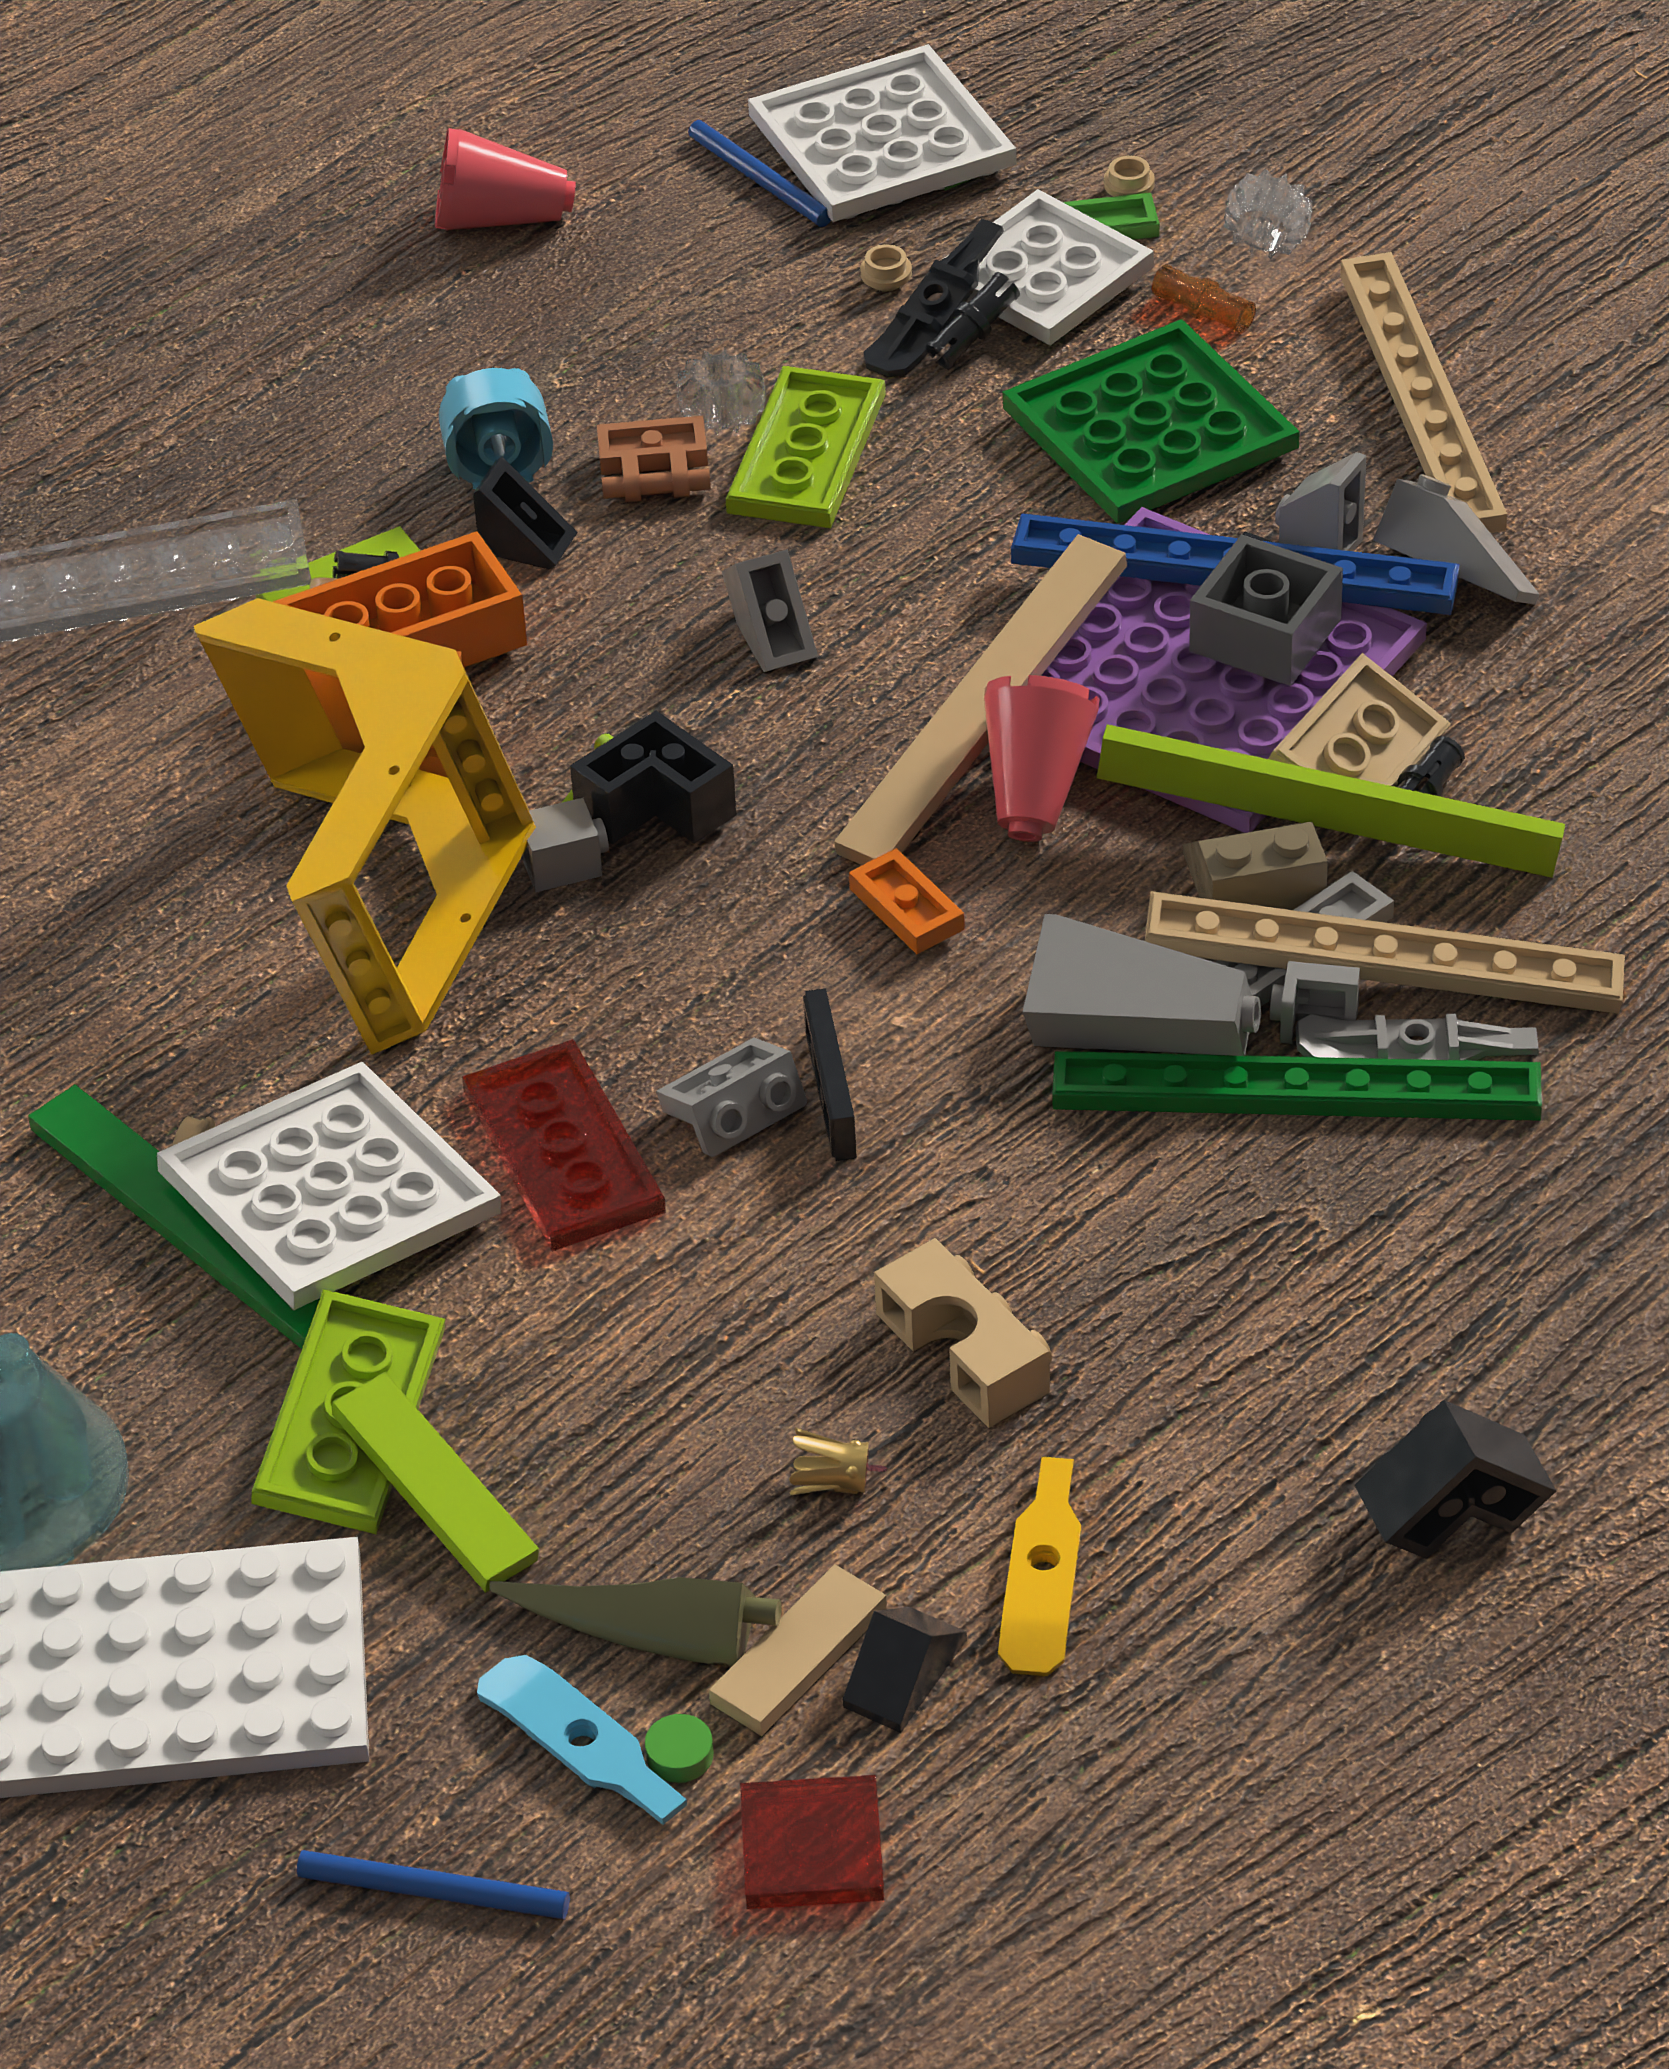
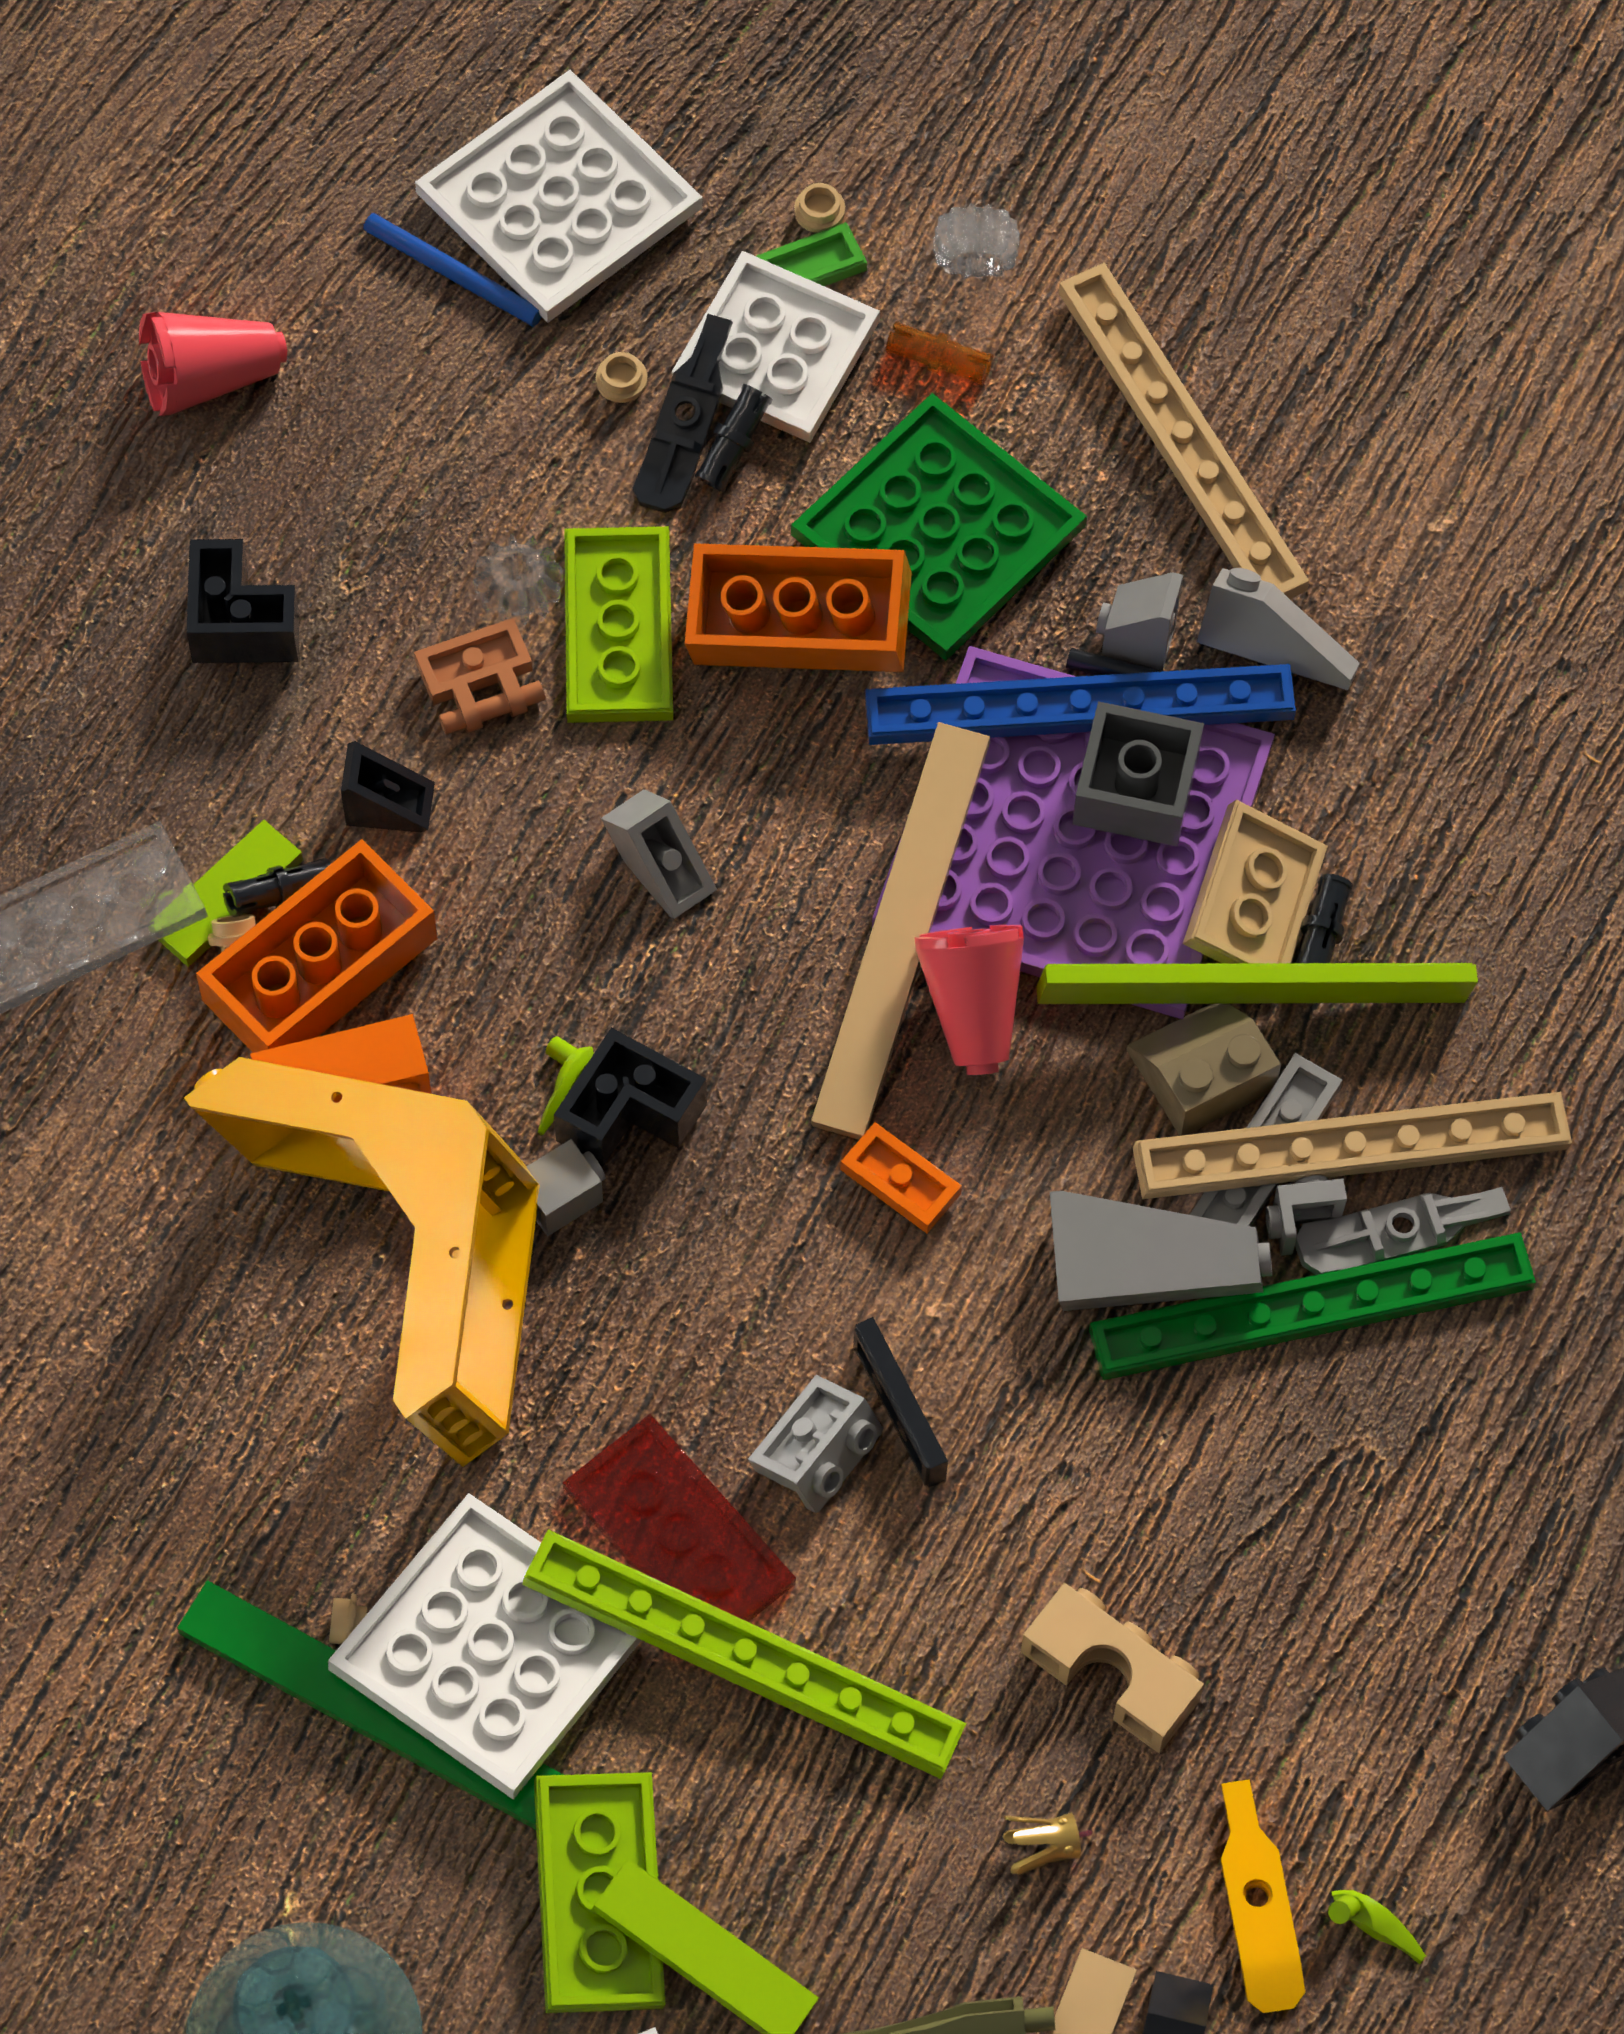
camera: 20 degrees left, 20 degrees up
(429, 352) = (235, 619): none -> black brick
(494, 417) = (323, 688): medium azure brick -> none
(585, 1244) = (744, 1654): none -> lime tile
(979, 440) = (798, 607): none -> orange brick
(1162, 1611) = (1374, 1921): none -> lime bar

